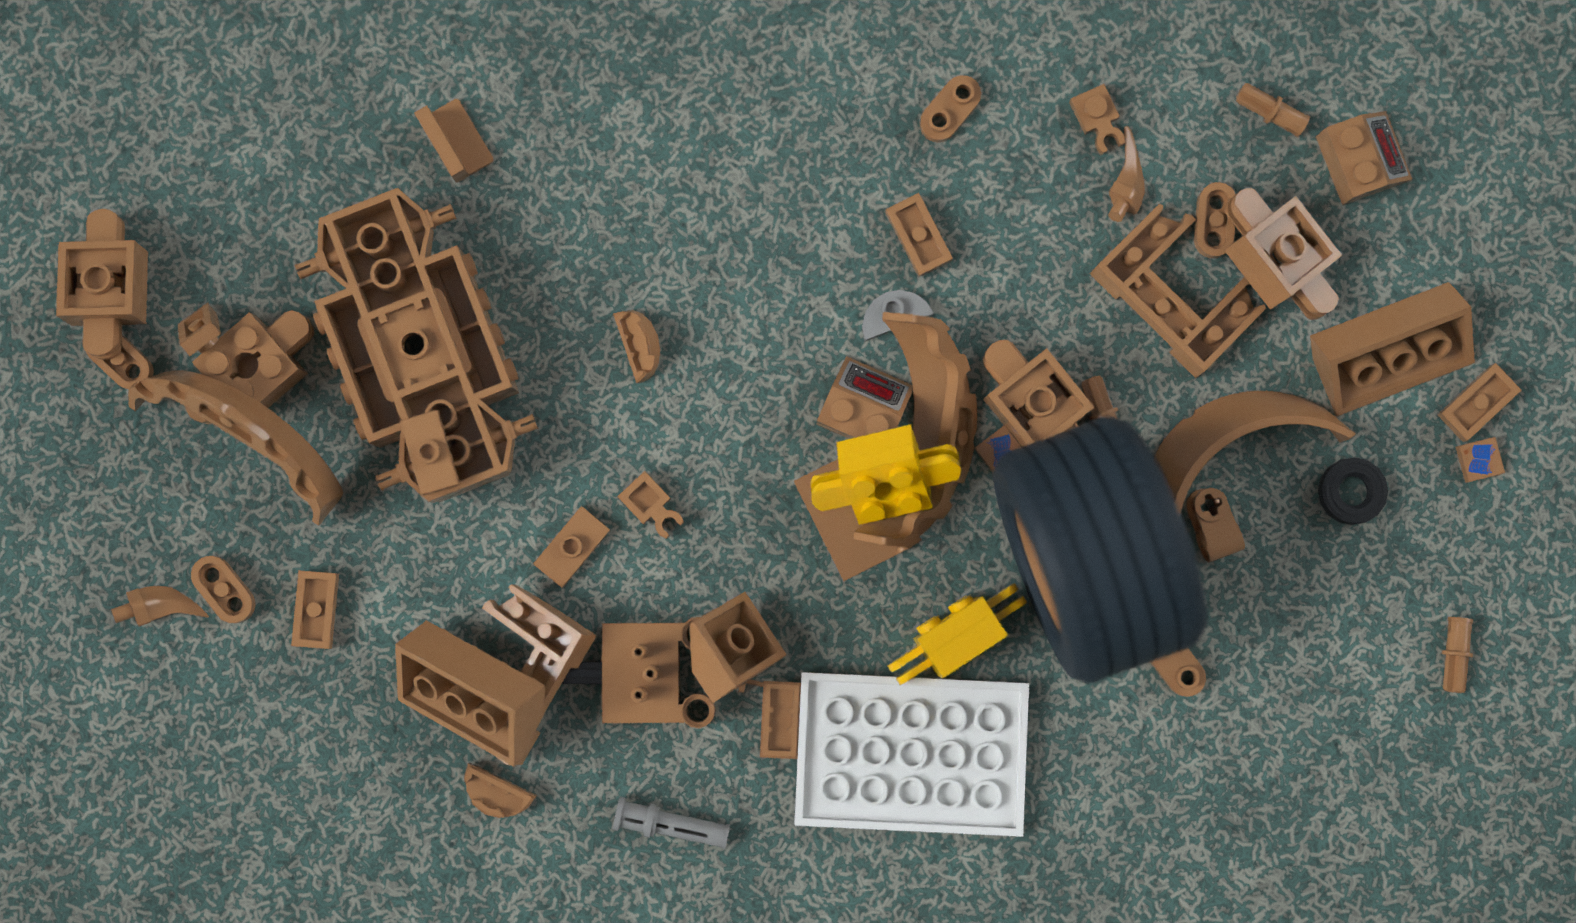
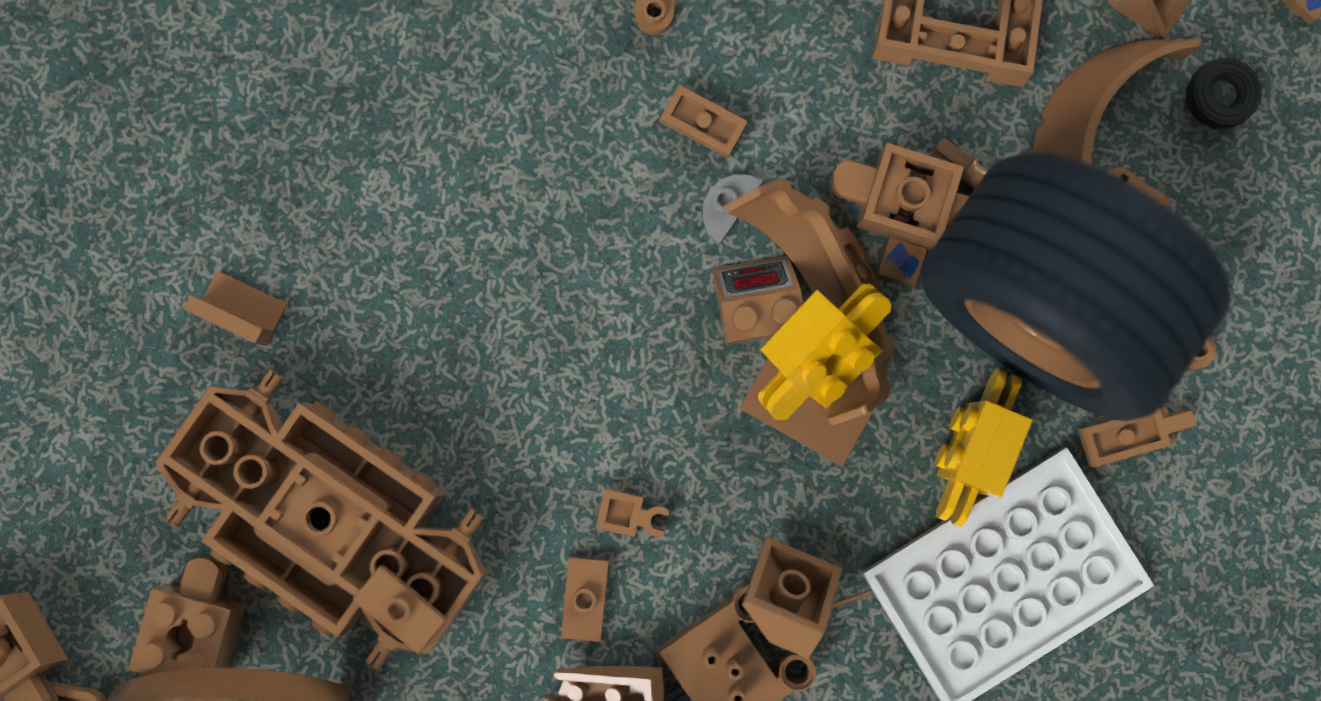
camera: 35 degrees left, 0 degrees up
(199, 330) = (117, 636): medium nougat plate -> none
(639, 342) = (523, 378): medium nougat plate -> none
(780, 719) = (872, 627): medium nougat plate -> none
(1089, 709) = (1119, 440): none -> medium nougat hinge

